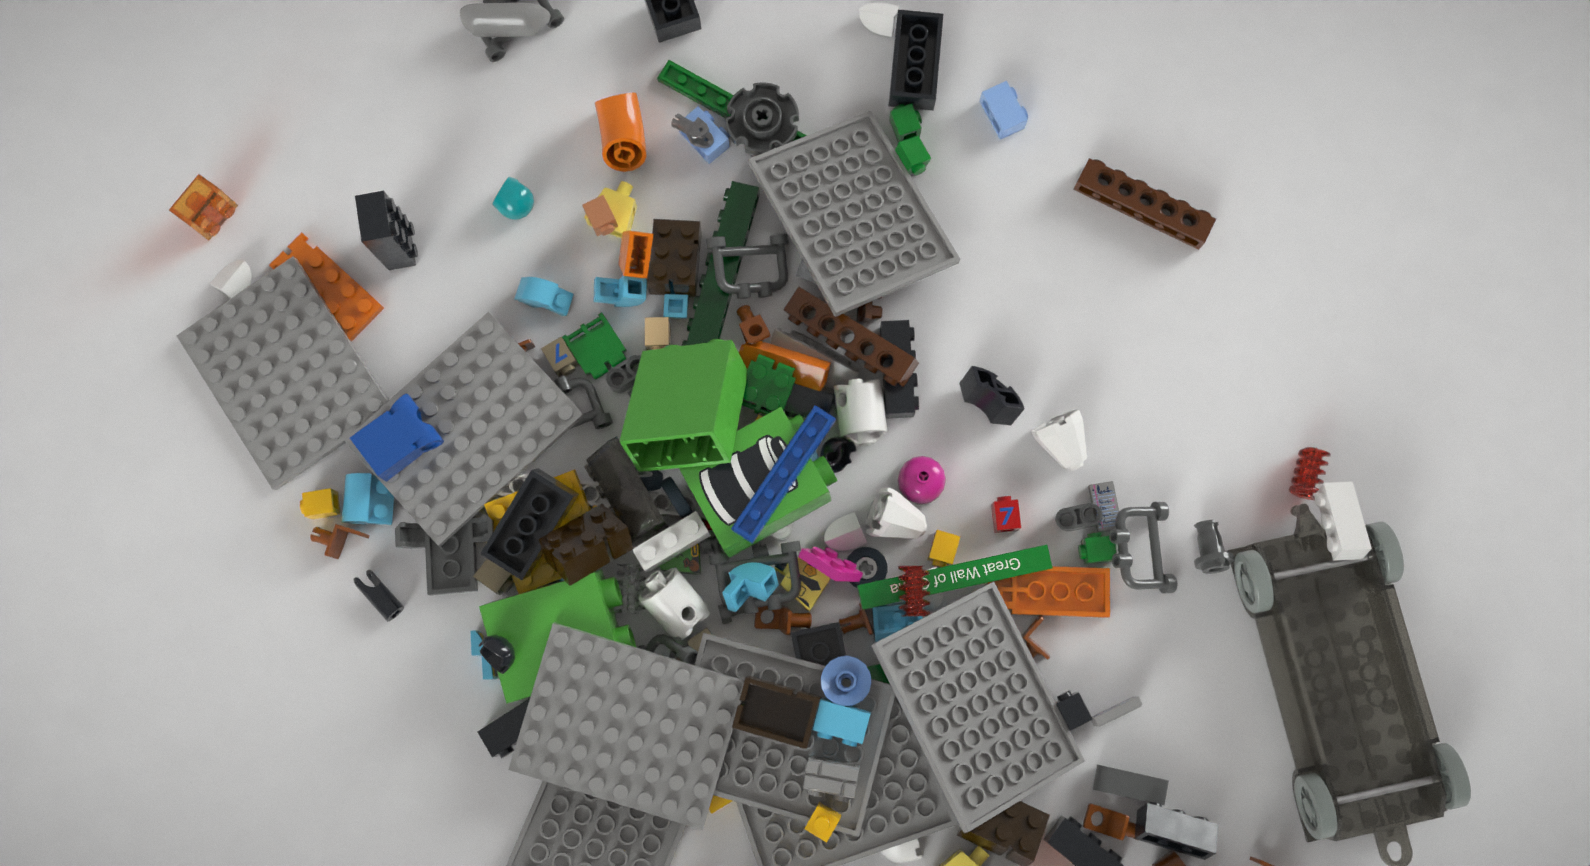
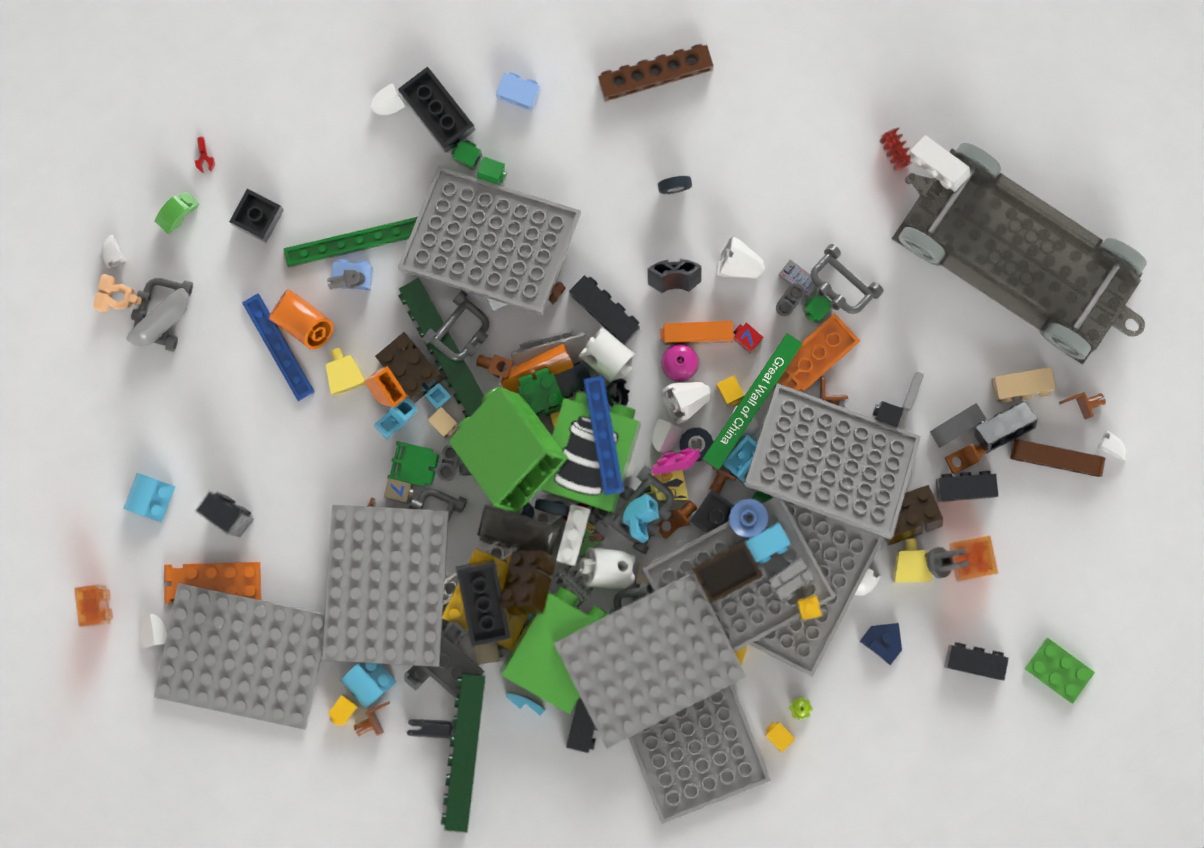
camera: 45 degrees left, 5 degrees up
(346, 163) = (149, 497): none -> medium azure brick
(384, 646) = (464, 752): none -> dark green brick
(396, 438) = (356, 628): blue piece -> none
(498, 652) = (539, 690): black hair -> none
(514, 199) = (276, 423): teal helmet -> none
(545, 294) = (352, 463): medium azure brick -> none
(581, 140) = (278, 347): none -> blue tile
(600, 216) = (342, 384): nougat brick -> none
(762, 103) = (364, 233): dark grey piece -> none
(903, 363) = (607, 305): reddish brown brick -> none
(914, 590) = (738, 431): clear red piece -> none
(963, 467) = (697, 332): none -> orange brick
(1068, 316) = (674, 184): none -> black bush
(1212, 552) = (882, 247): dark grey piece -> none
(1231, 807) = (1023, 385): none -> tan brick

